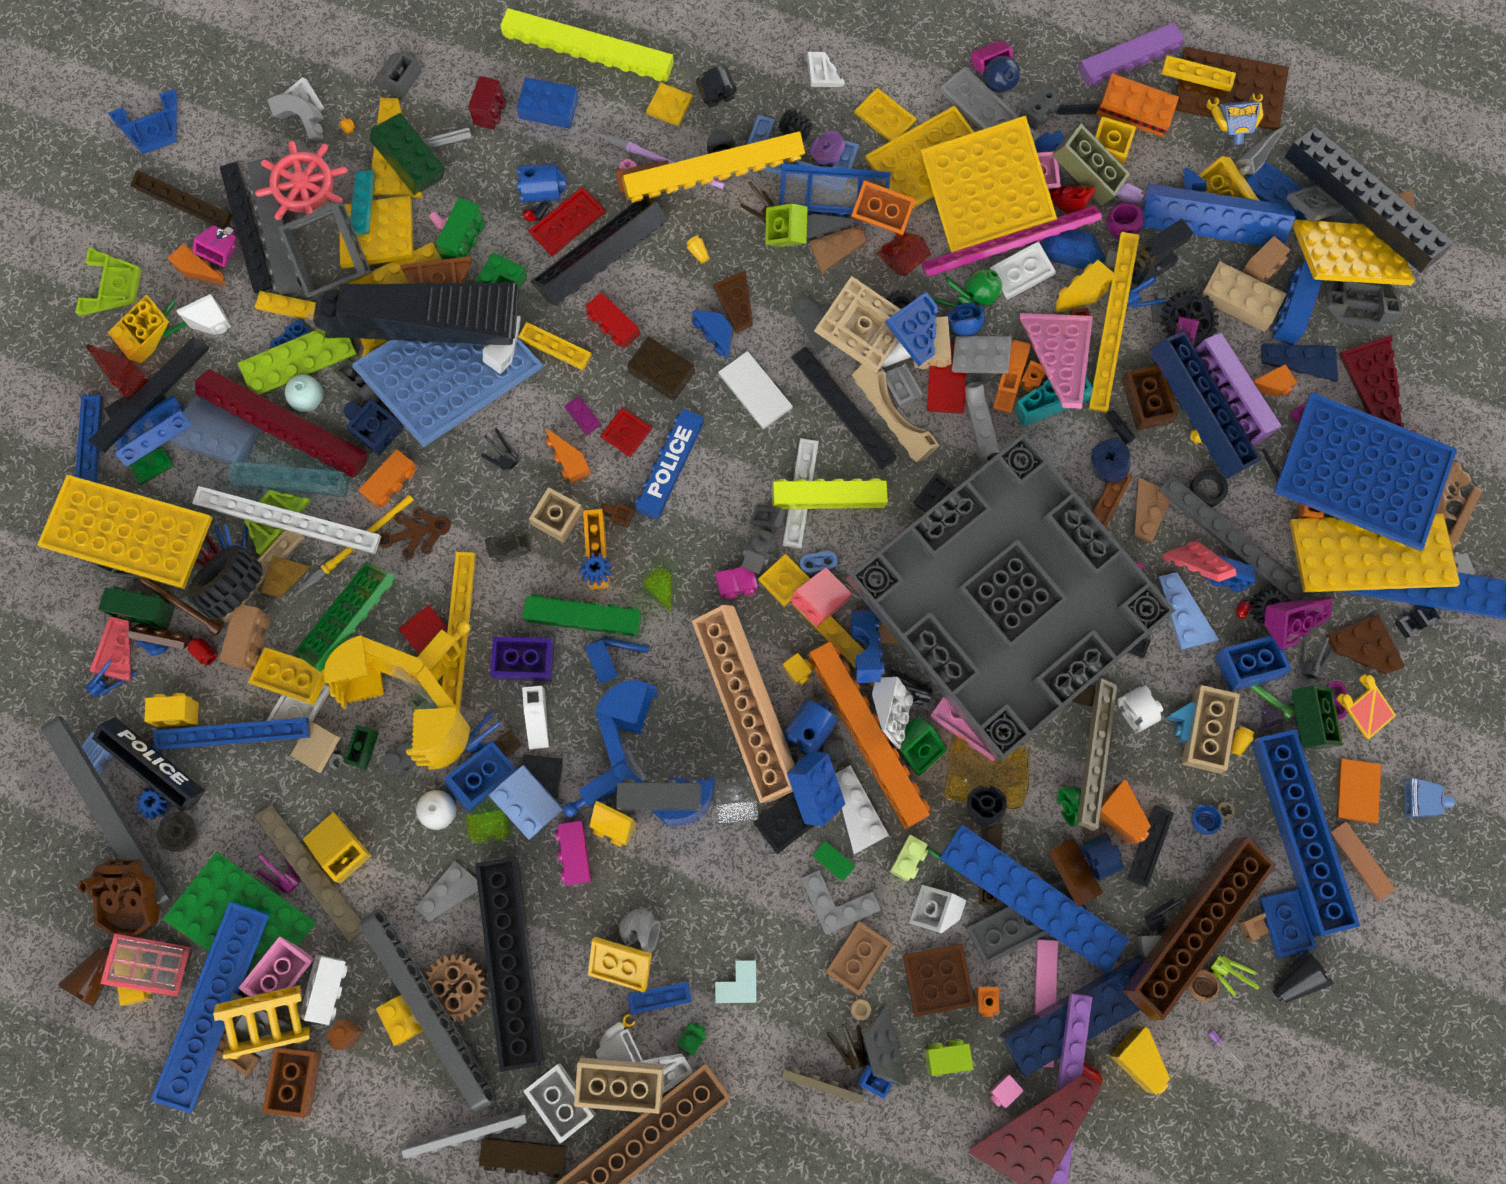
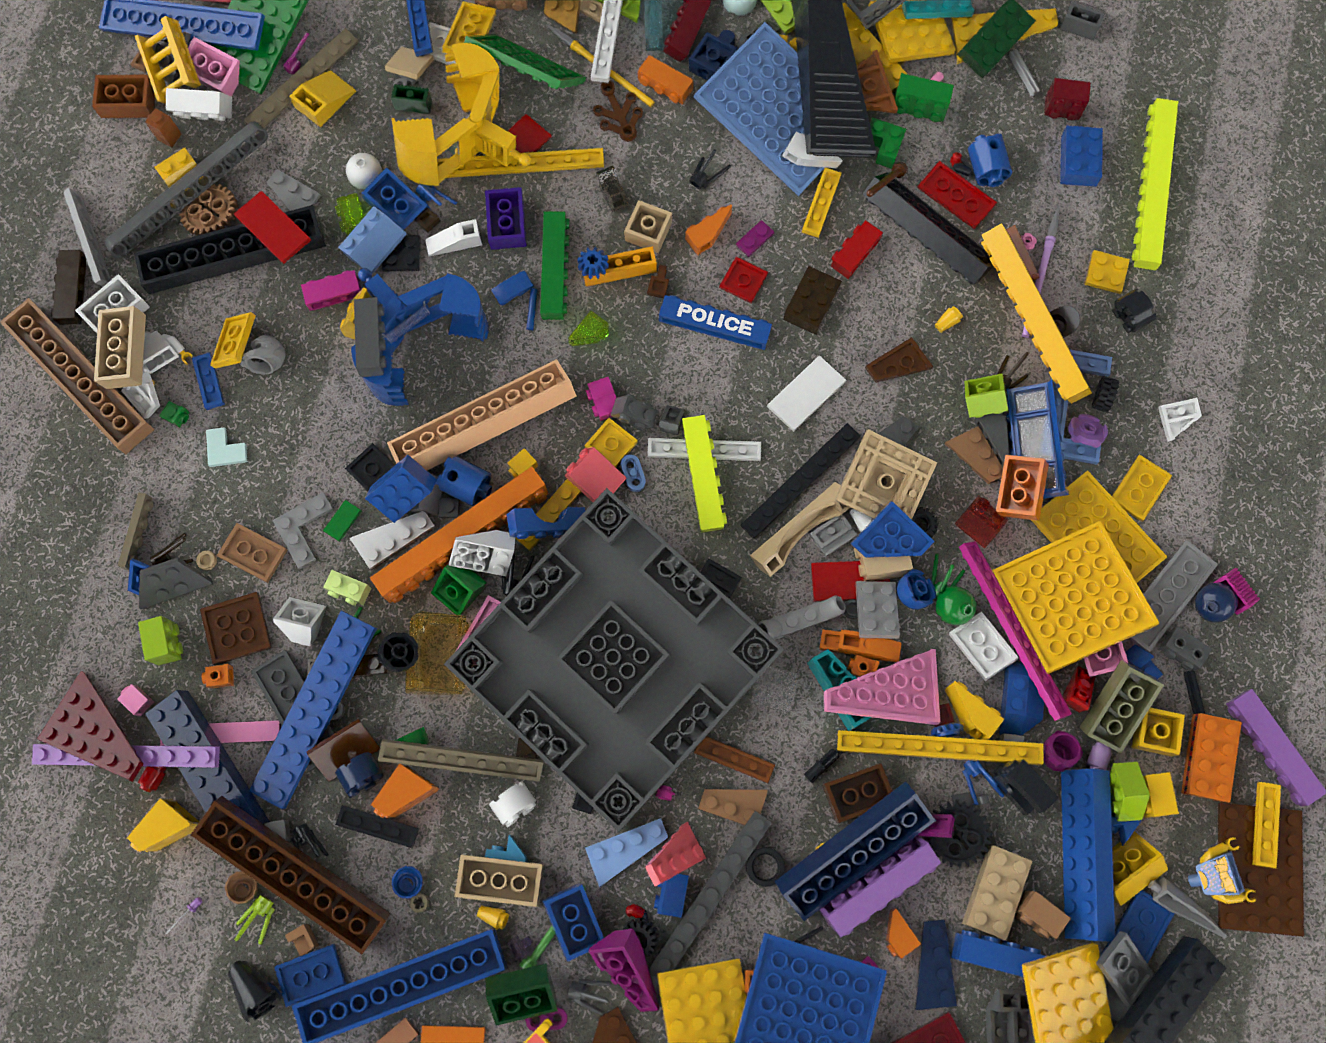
camera: 85 degrees right, 0 degrees up
(496, 909) = (272, 227): none -> red tile
(533, 269) = (898, 171): none -> reddish brown piece
(715, 330) = (861, 347): blue slope -> none
(736, 800) = (390, 421): clear slope -> none
(1098, 313) = (947, 730): none -> blue gear
(1111, 460) = (788, 756): dark blue brick -> none
(1166, 171) = (1128, 791): none -> lime brick
(1168, 153) = (1162, 795): none -> yellow brick

